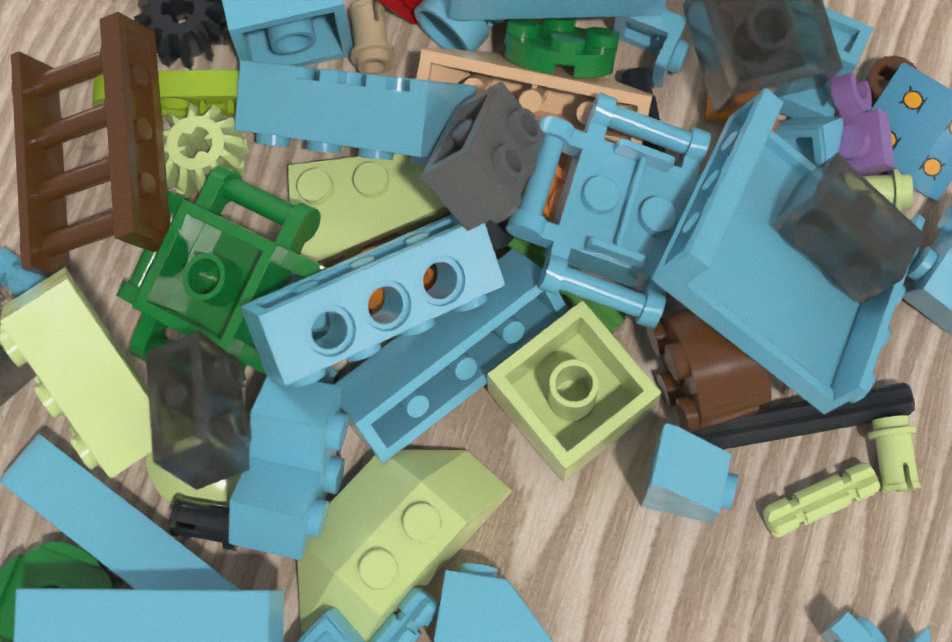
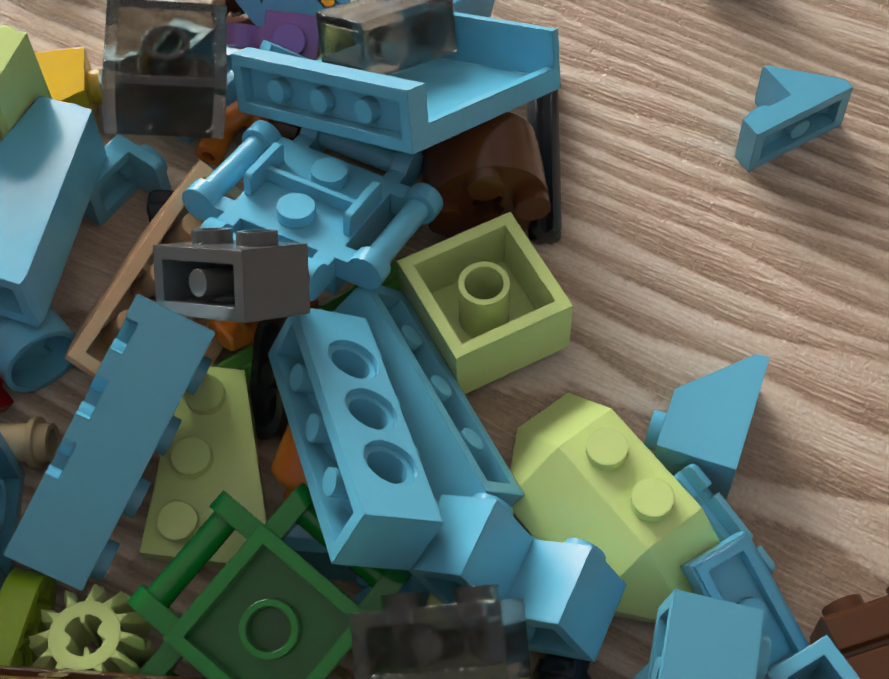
camera: 80 degrees left, 15 degrees down
(562, 44) = (108, 248): green plate -> none
(689, 476) = (587, 230): medium azure slope -> none
(821, 499) = (625, 140): yellowish green axle -> none
(895, 453) = (593, 75): yellowish green pin -> none

